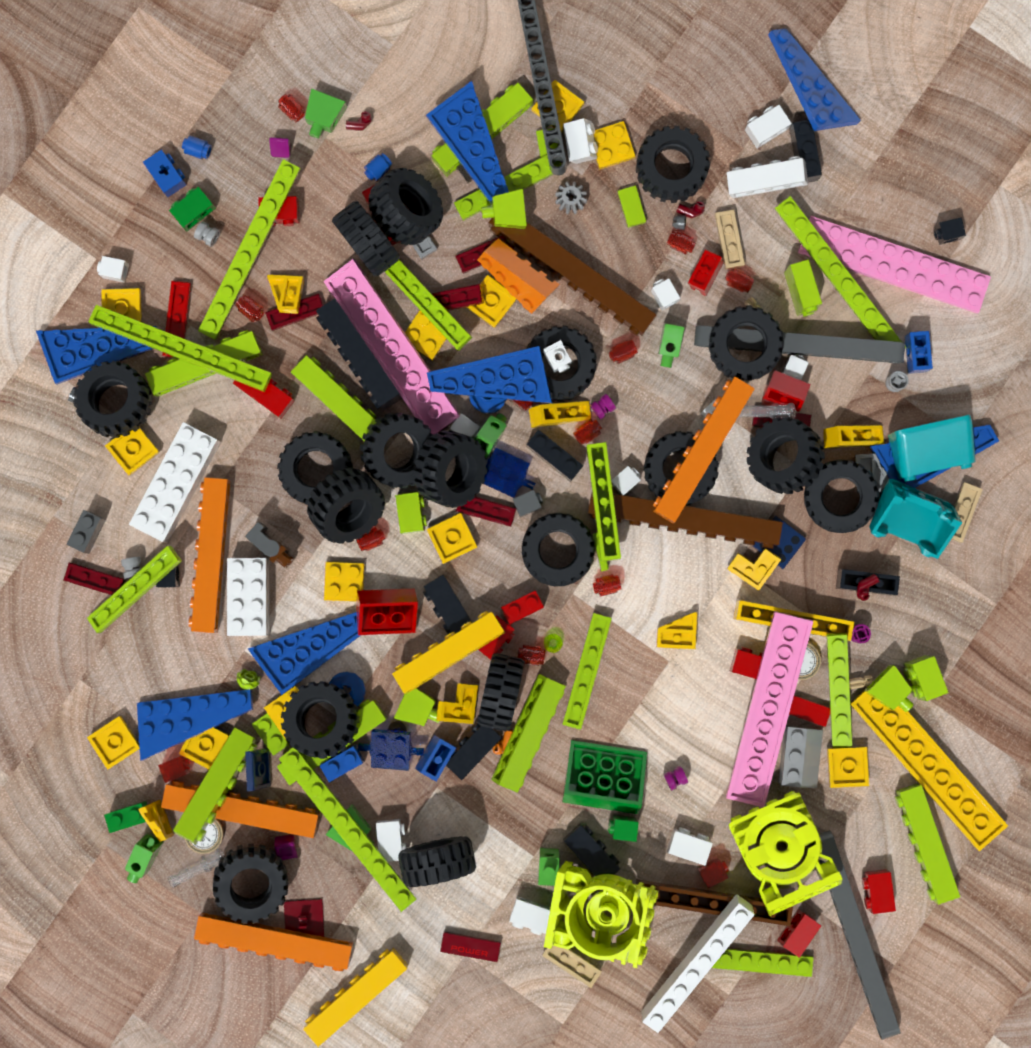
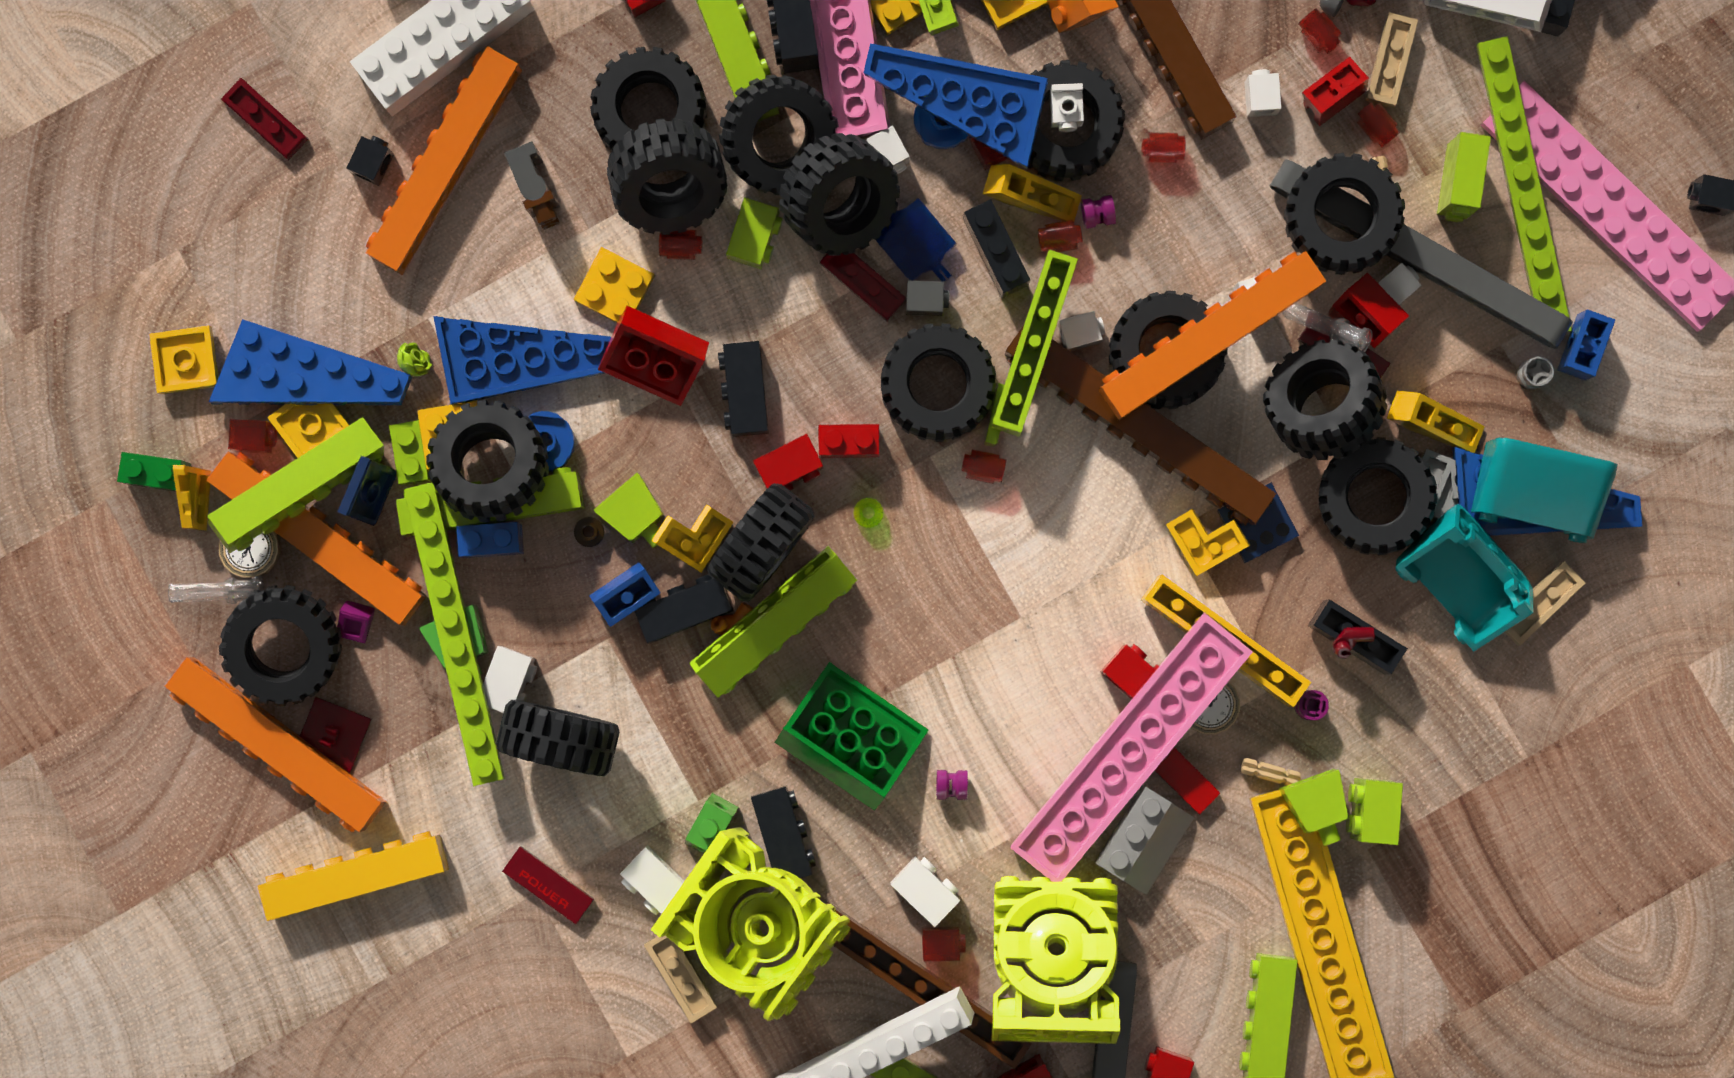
camera: 25 degrees right, 0 degrees up
(86, 532) = (285, 45): dark grey brick -> none
(131, 566) = (325, 126): light grey wheel -> none
(134, 589) = (314, 156): lime plate -> none
(142, 857) = (147, 539): bright green torso -> none
(247, 596) = (469, 243): white brick -> none
(390, 749) = (567, 553): clear blue plate -> none
(449, 652) = (714, 452): yellow brick -> none
(452, 538) = (795, 297): yellow plate -> none
(491, 433) = (921, 174): bright green torso -> none
(532, 655) = (830, 515): clear red brick -> none
(587, 671) = (897, 574): lime plate -> none
(623, 828) = (843, 819): green brick -> none
(670, 334) = (1245, 156): bright green torso -> none
(679, 633) = (1053, 583): yellow wing -> none
(839, 690) = (1243, 770): lime plate -> none
(848, 767) = (1204, 886): yellow plate -> none

